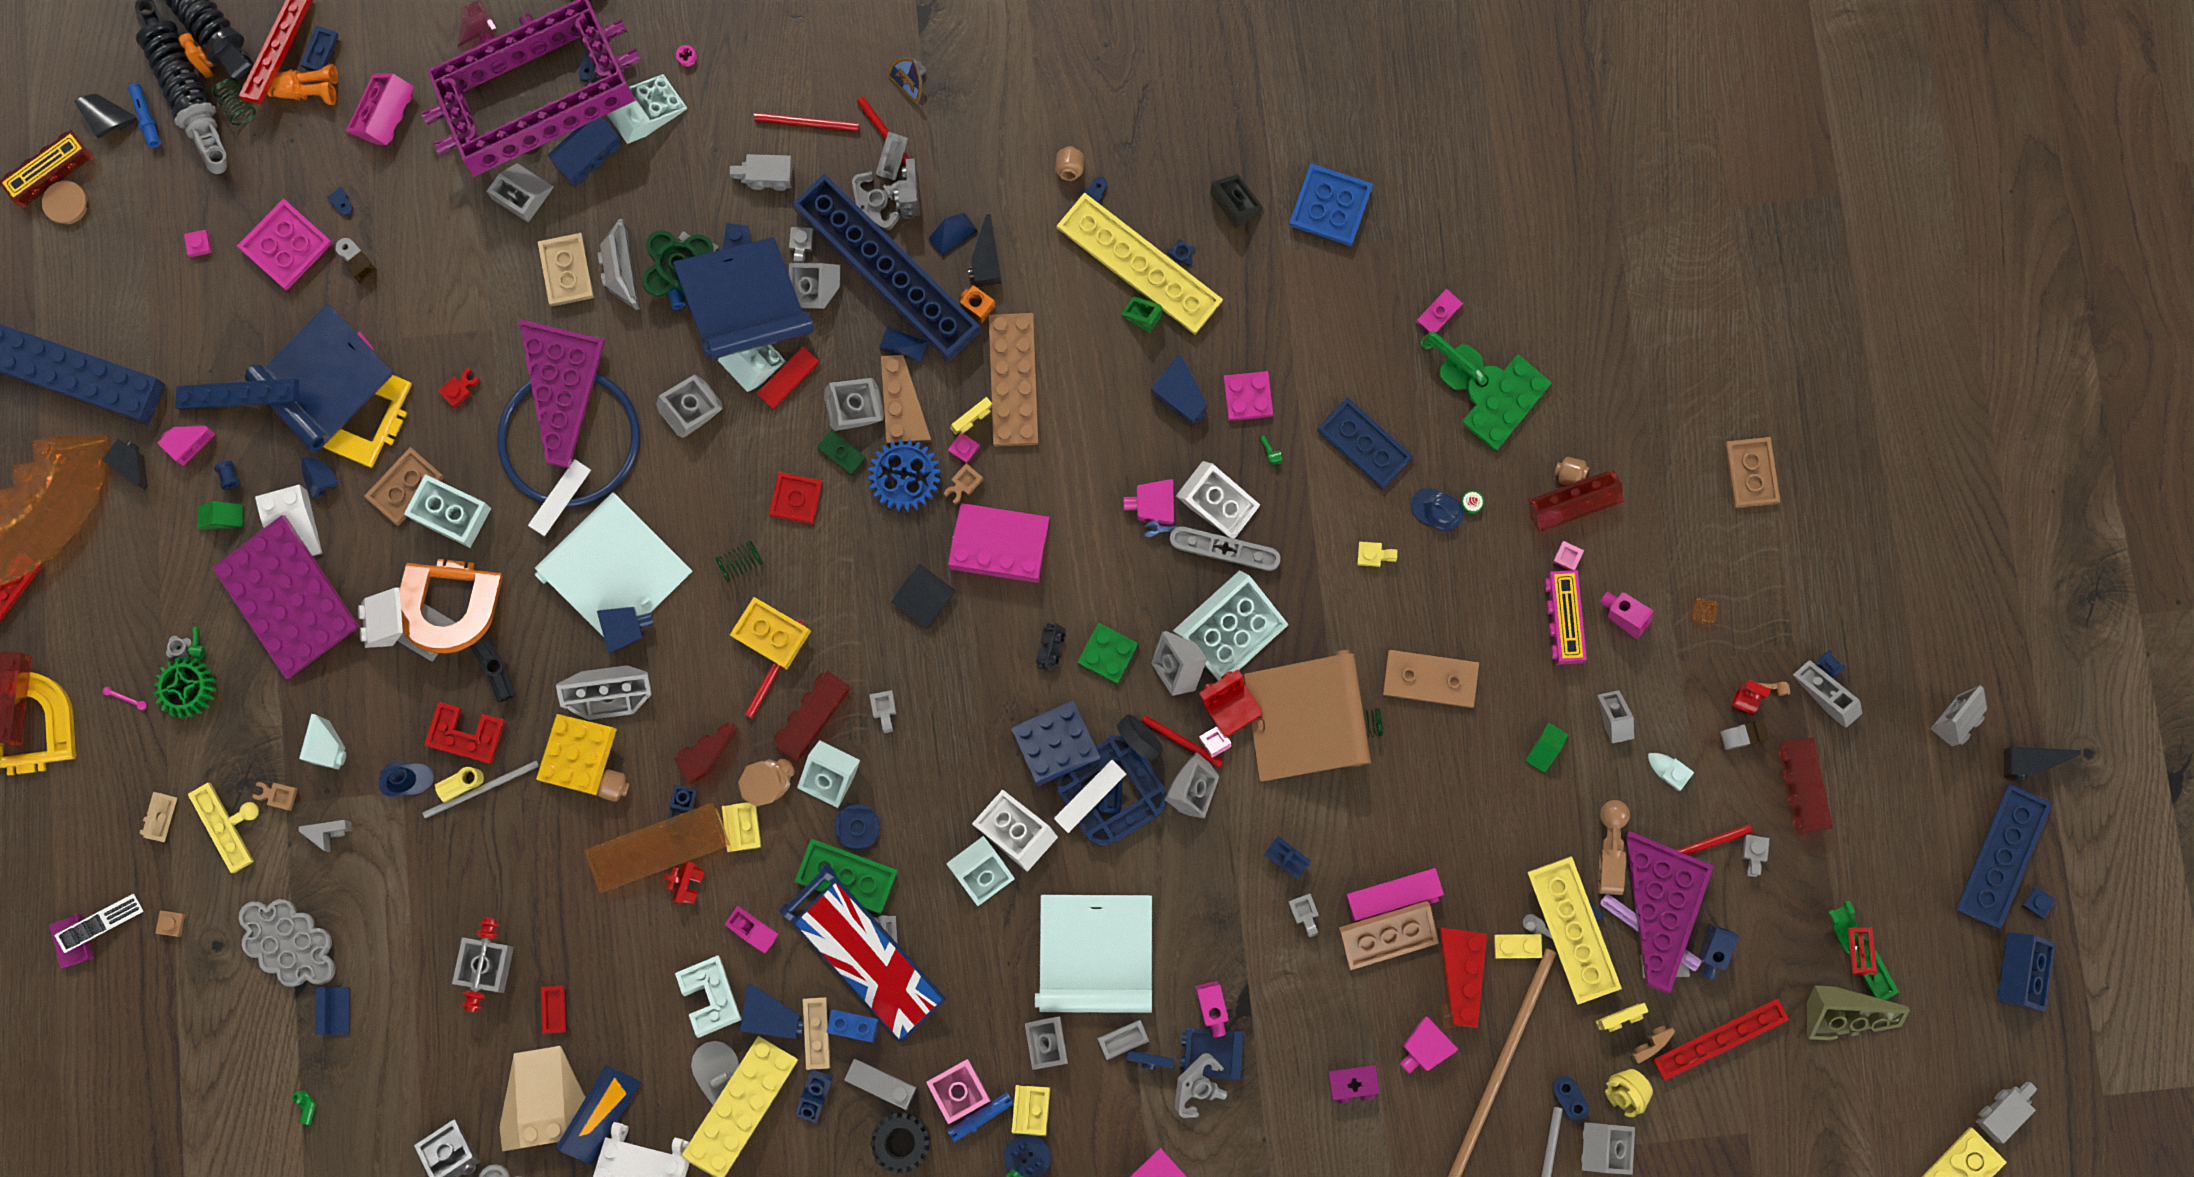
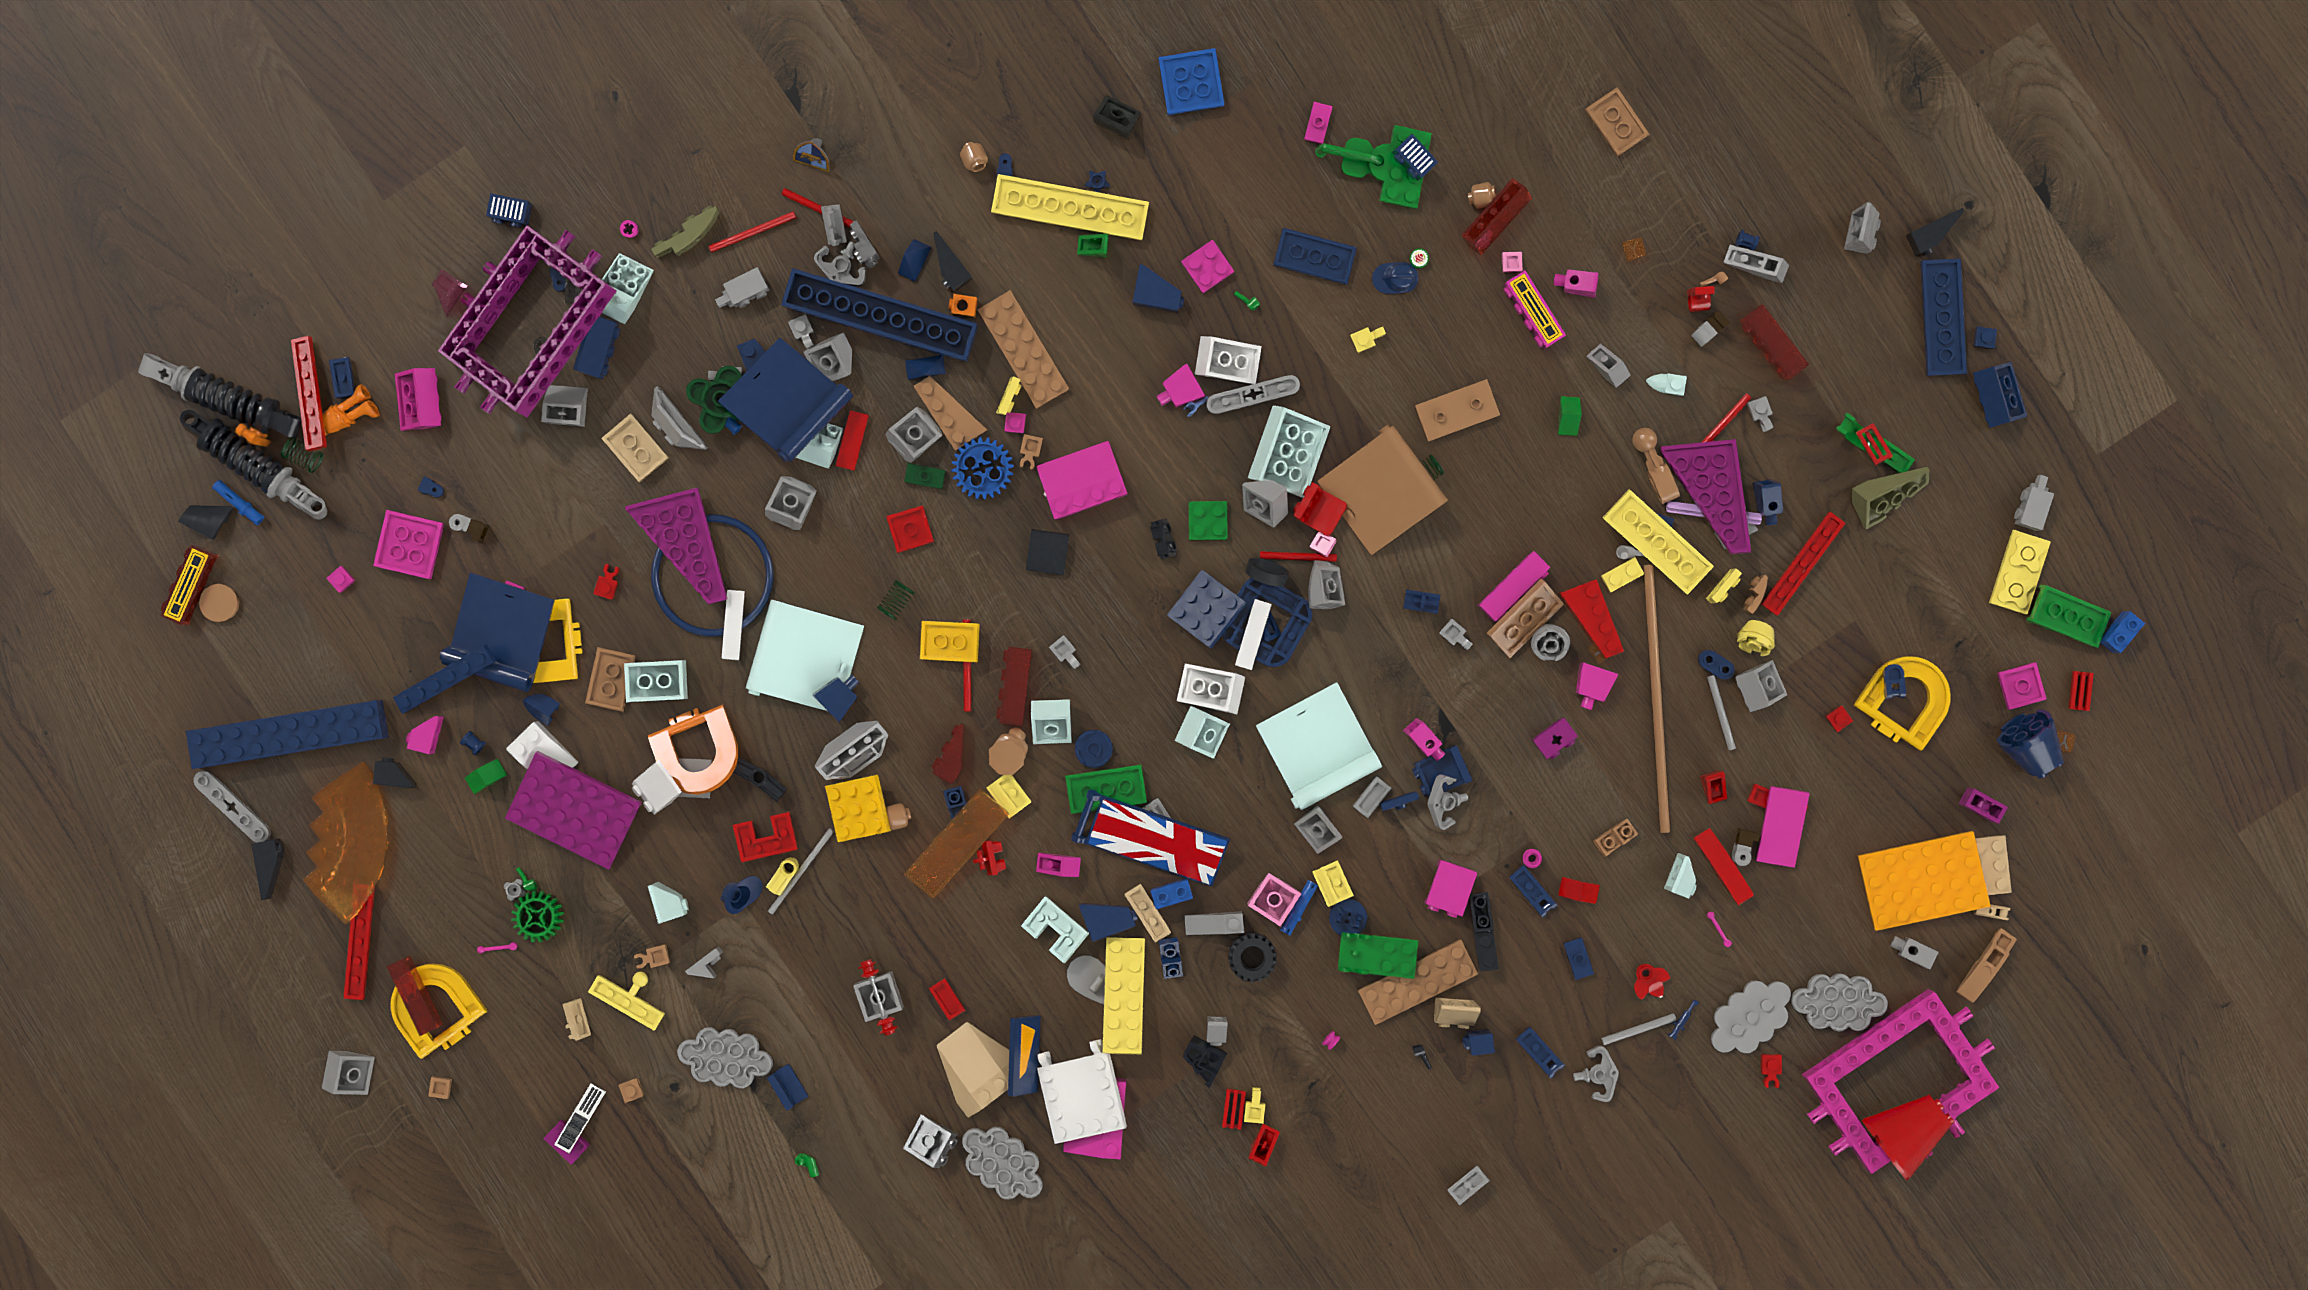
camera: 30 degrees left, 10 degrees up
(749, 90) = (695, 229): none -> olive slope
(1402, 975) = (1550, 642): none -> light grey cone
(1520, 395) = (1414, 157): none -> dark blue brick

